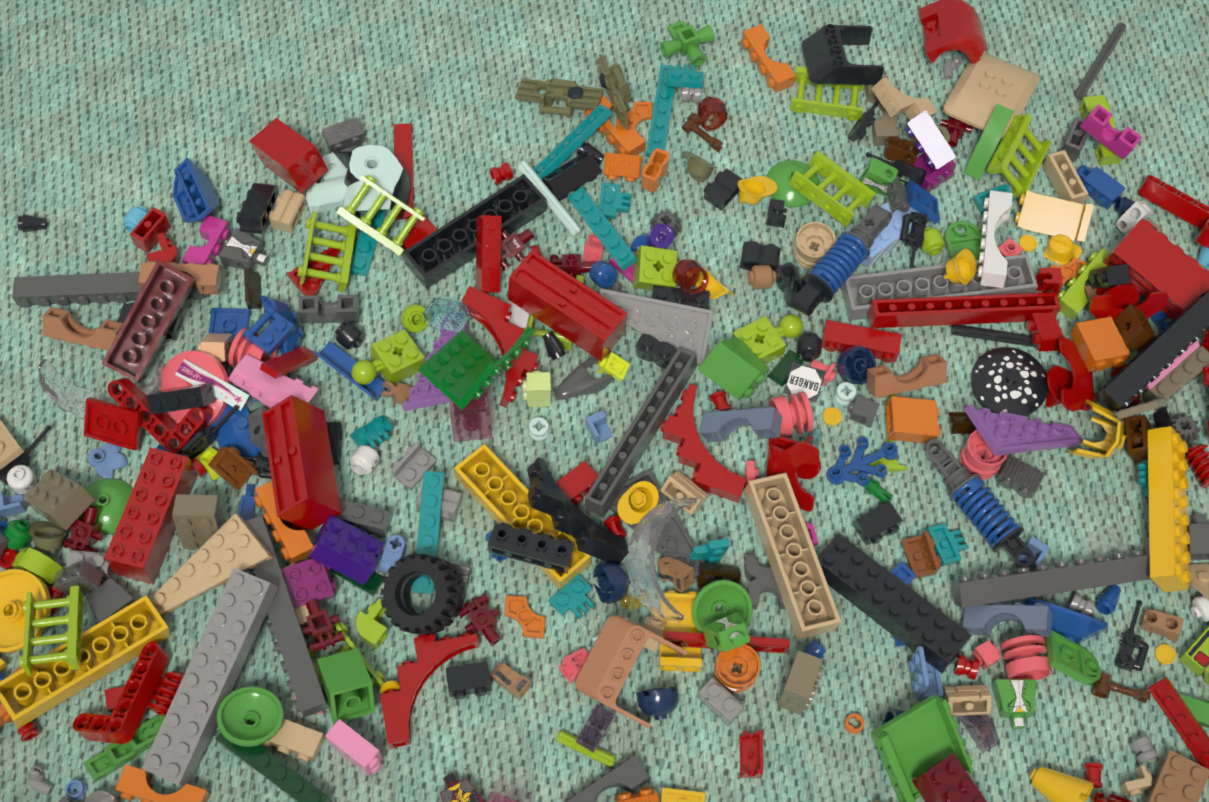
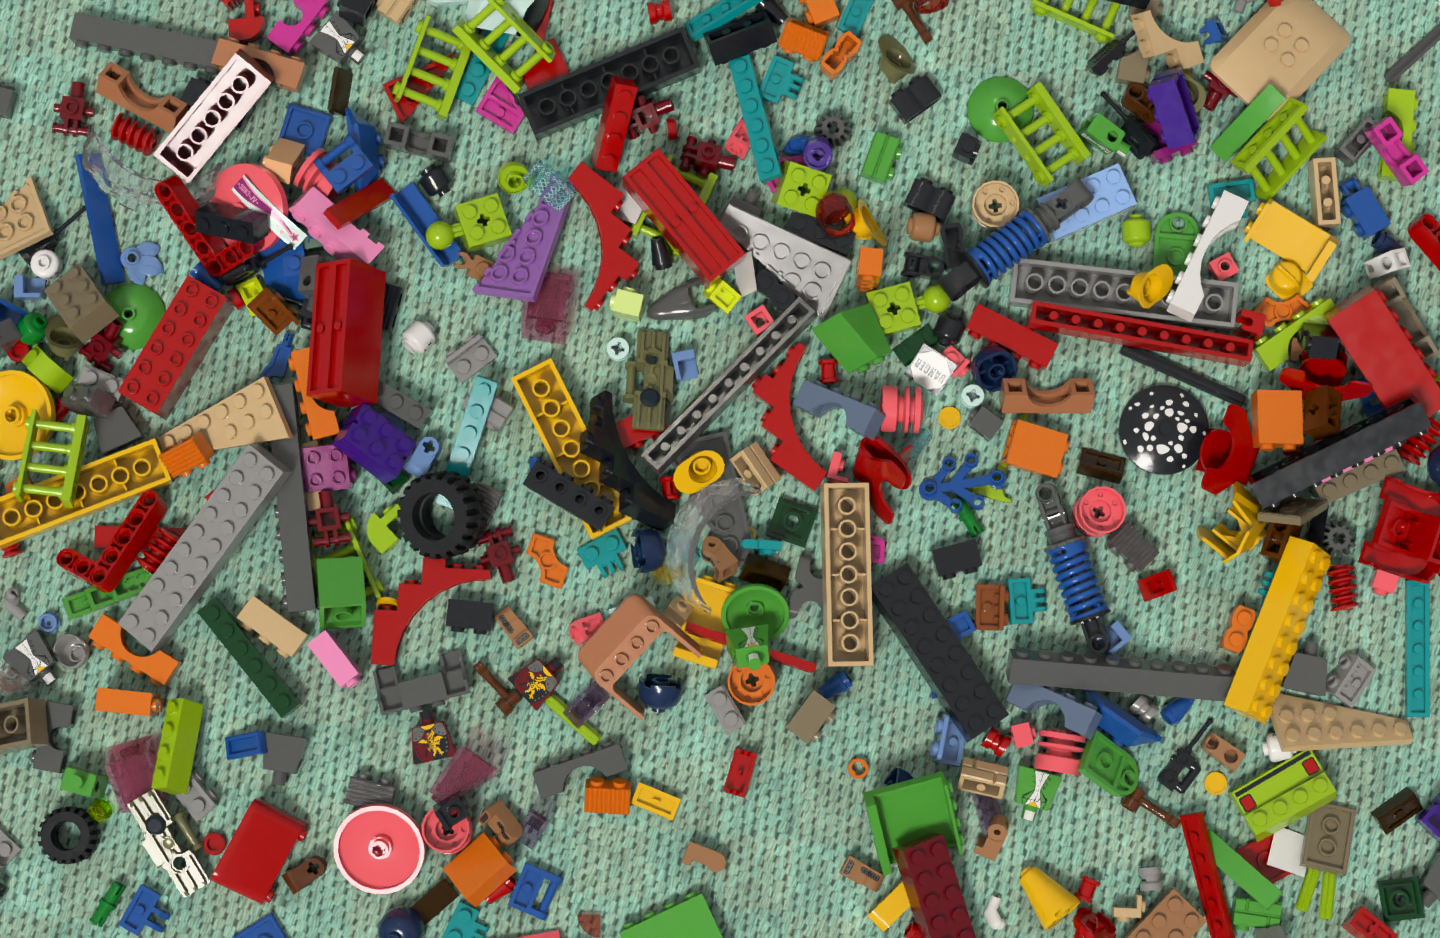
camera: 20 degrees right, 20 degrees up
(25, 355) = (73, 110): none -> dark red piece
(65, 438) = (101, 228): none -> blue tile
(81, 361) = (135, 136): none -> red piece
(112, 423) = (154, 225): red tile -> none
(178, 601) = (186, 455): none -> orange brick
(197, 519) = (224, 369): dark tan brick -> none
(246, 706) = (241, 587): bright green dish -> none
(372, 432) = (434, 306): teal hinge -> none
(390, 271) = (500, 107): none -> dark pink wing
(442, 756) = (423, 690): none -> dark grey bracket
(465, 369) = (554, 268): green bracket -> none
(521, 748) = (507, 700): none -> reddish brown brick
(543, 722) = (537, 681): none -> torso
(551, 200) = (705, 61): light aqua axle -> none
(580, 442) = (658, 381): none -> olive piece
(603, 274) = (740, 180): blue head -> none
(629, 344) = (745, 276): none -> white sticker
(647, 373) = (751, 318): none -> coral plate
(710, 236) = (881, 157): none -> bright green brick
(733, 304) = (868, 269): none -> orange arch
(738, 538) = (779, 529): none -> dark green piece
(755, 189) = (952, 110): yellow piece -> none
(769, 306) = (920, 266): none -> black piece
(897, 196) = (1113, 162): dark grey hinge -> none
(916, 235) = (1119, 222): black piece -> none
(923, 201) = (1142, 181): blue tile -> none
(937, 92) = (1216, 32): none -> blue tile
(996, 751) = (991, 844): none -> medium nougat leg
(1014, 433) = (1139, 502): medium lavender wing -> none
(1028, 243) = (1251, 260): yellow piece -> none
(1044, 331) = (1223, 383): red brick -> none
(1053, 502) = (1157, 585): none -> red bracket
(1133, 520) = (1239, 623): none -> orange brick

